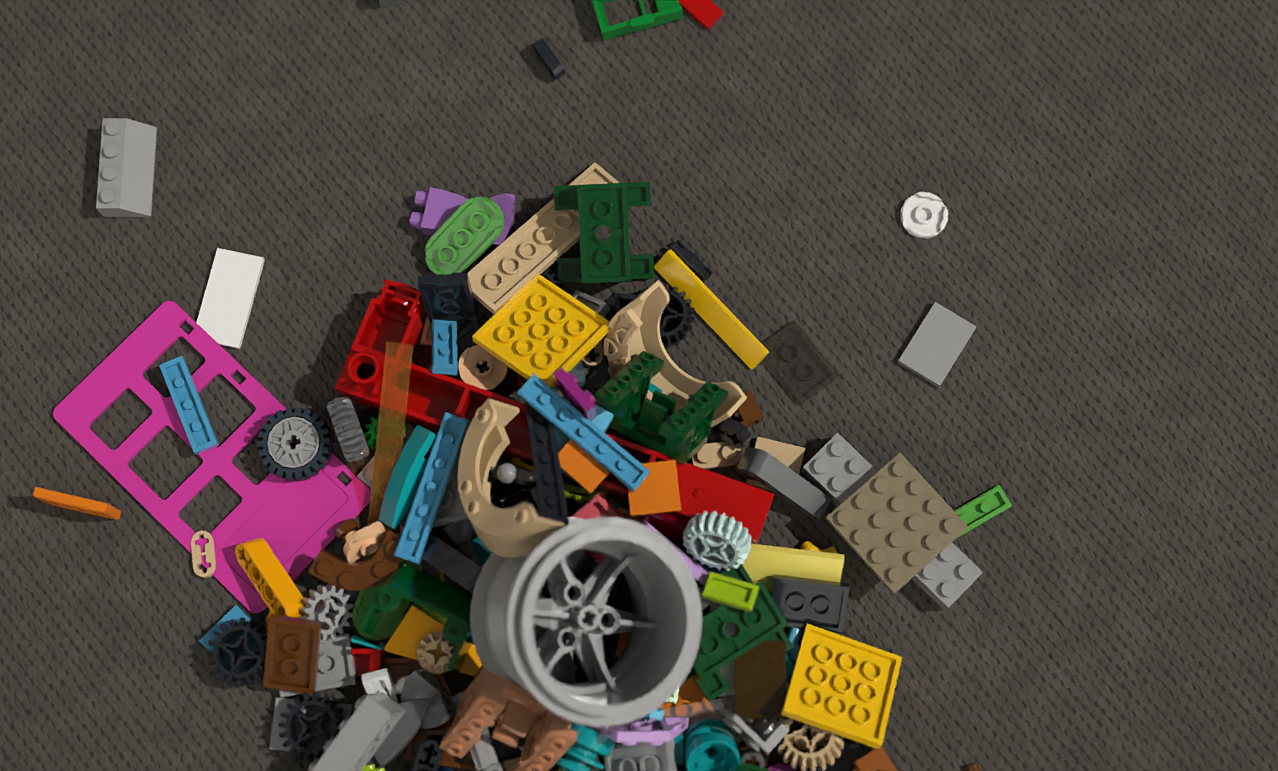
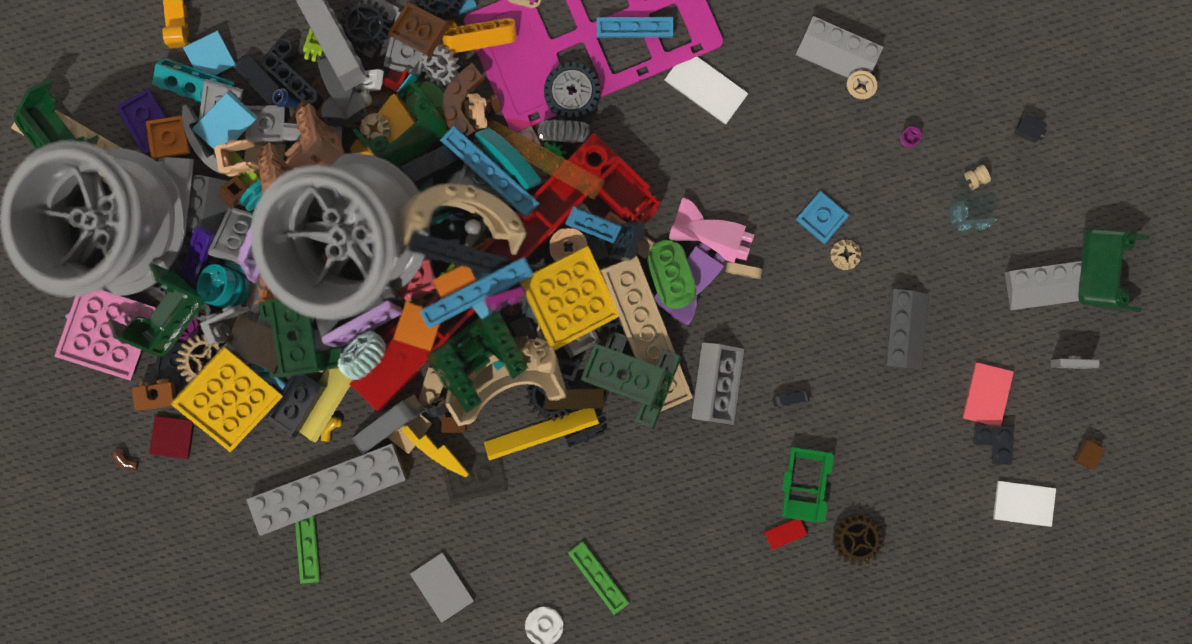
camera: 110 degrees right, 10 degrees up
(166, 127) = (861, 92): none -> tan gear
(193, 49) = (912, 134): none -> magenta wheel
(328, 110) = (822, 217): none -> dark azure tile
(356, 78) = (839, 261): none -> tan gear
(396, 207) = (717, 234): none -> bright pink hips
(425, 167) = (743, 270): none -> tan beam
(567, 143) = (717, 383): none -> light grey slope
(649, 272) = (577, 400): none -> dark brown tile
(730, 591) = (318, 346): lime tile -> none
(789, 408) = (442, 455): none -> yellow slope
(842, 180) = (598, 578): none -> bright green tile
(896, 523) = (319, 490): dark tan plate -> none
(918, 738) = (171, 437): none -> dark red tile

